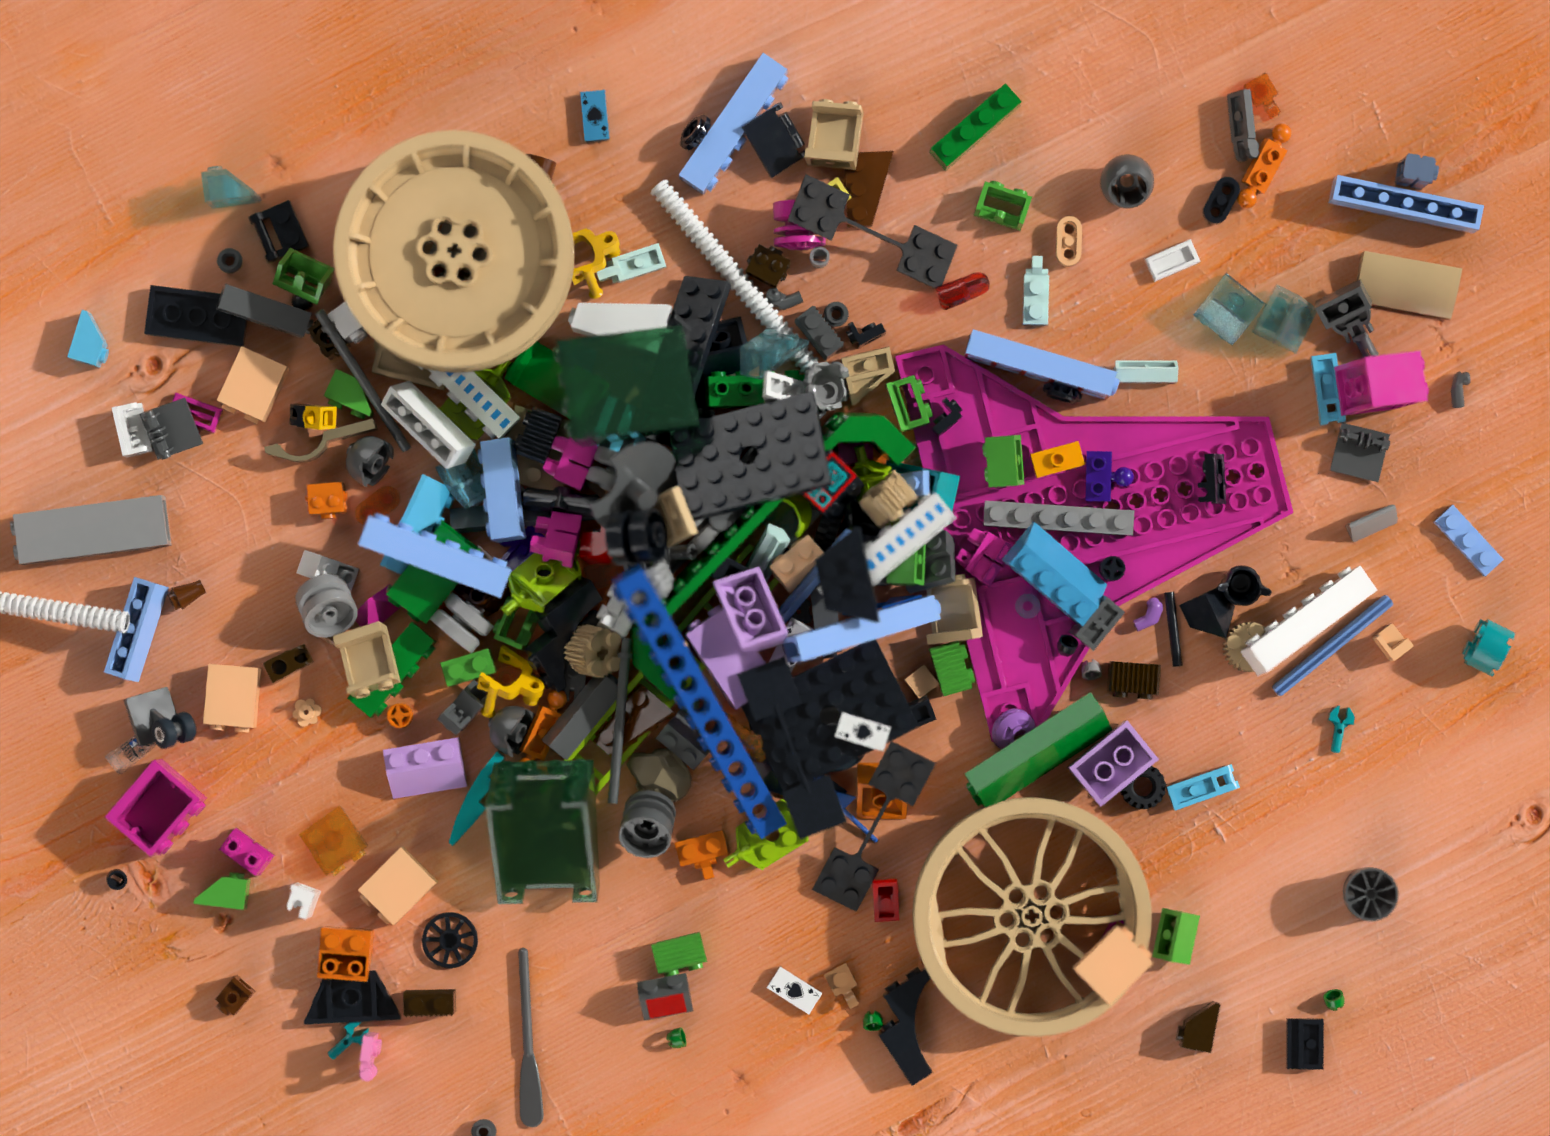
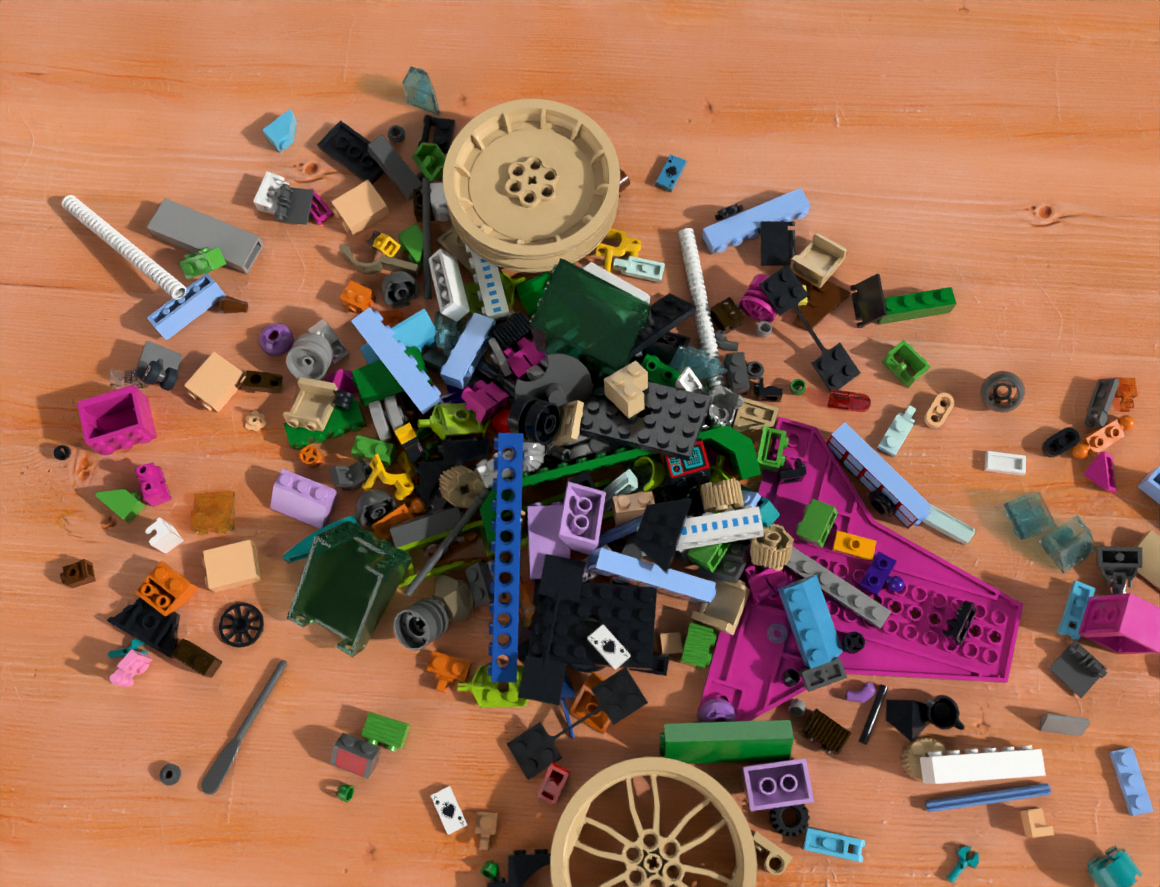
camera: 35 degrees right, 15 degrees down
(119, 568) = (201, 263): none -> bright green brick
(276, 606) = (281, 344): none -> medium lavender piece
(399, 634) = (342, 400): none -> black wheel
(509, 637) = (410, 442): none -> leg
(542, 479) = (498, 357): none -> light grey plate
(712, 441) = (626, 388): none -> tan brick
(892, 305) = (796, 384): none -> green hinge
(920, 153) = (868, 300): none -> black piece
(974, 521) = (773, 548): none -> tan brick
(1129, 830) = (762, 844): none -> tan plate
(1284, 209) = (1102, 472): none -> dark pink slope

